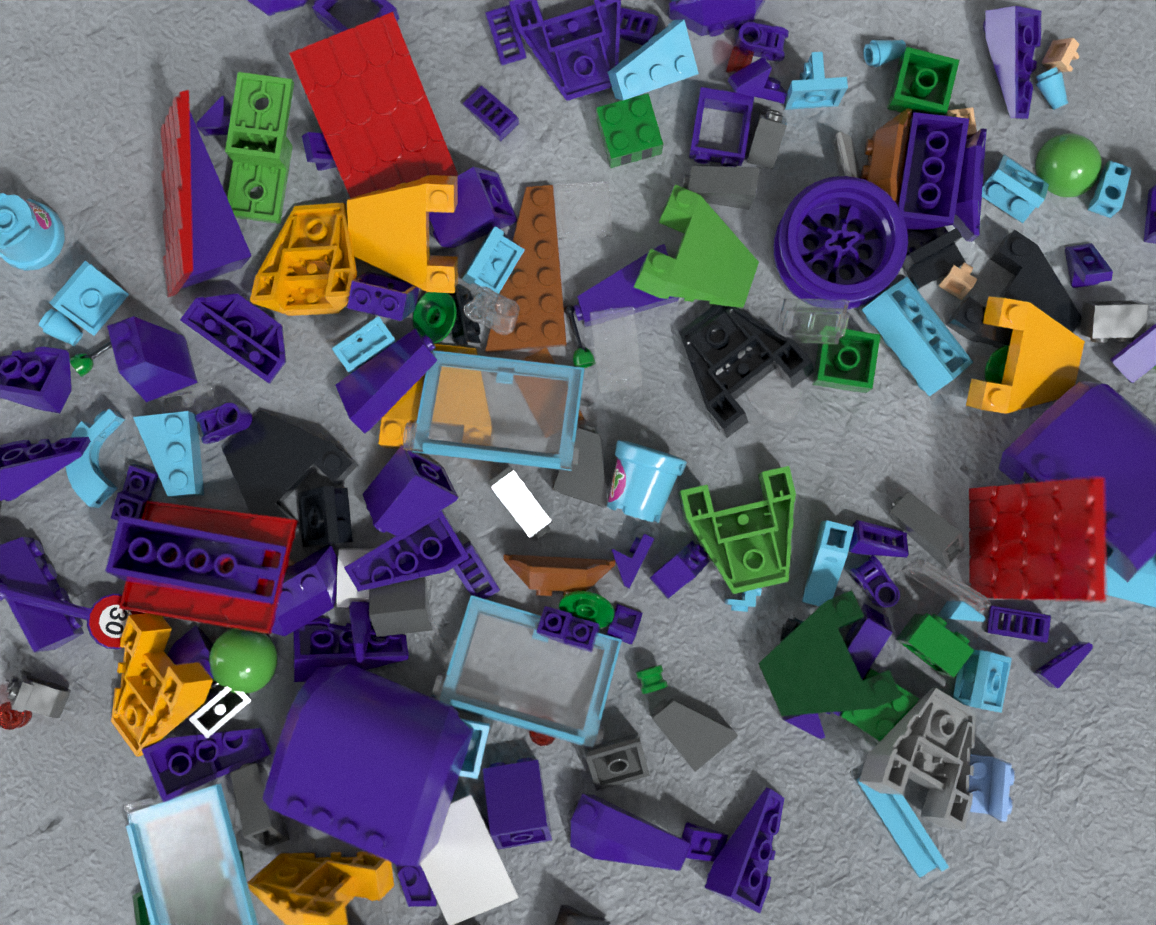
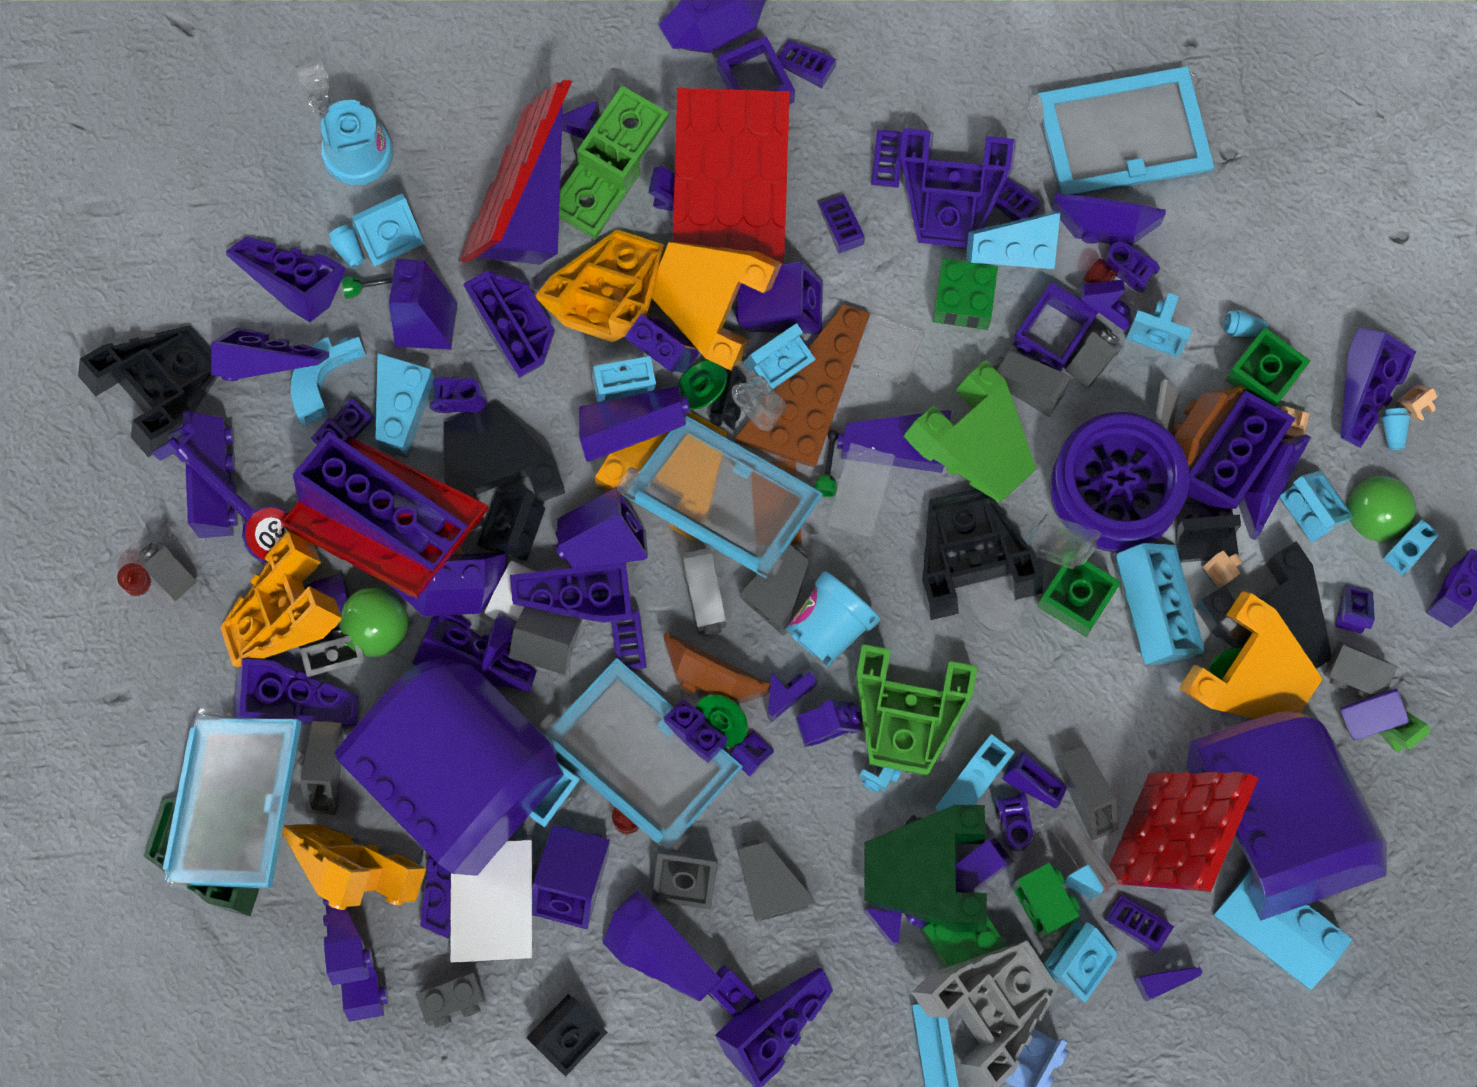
camera: 20 degrees right, 10 degrees down
(651, 679) = (754, 815): green wheel -> none

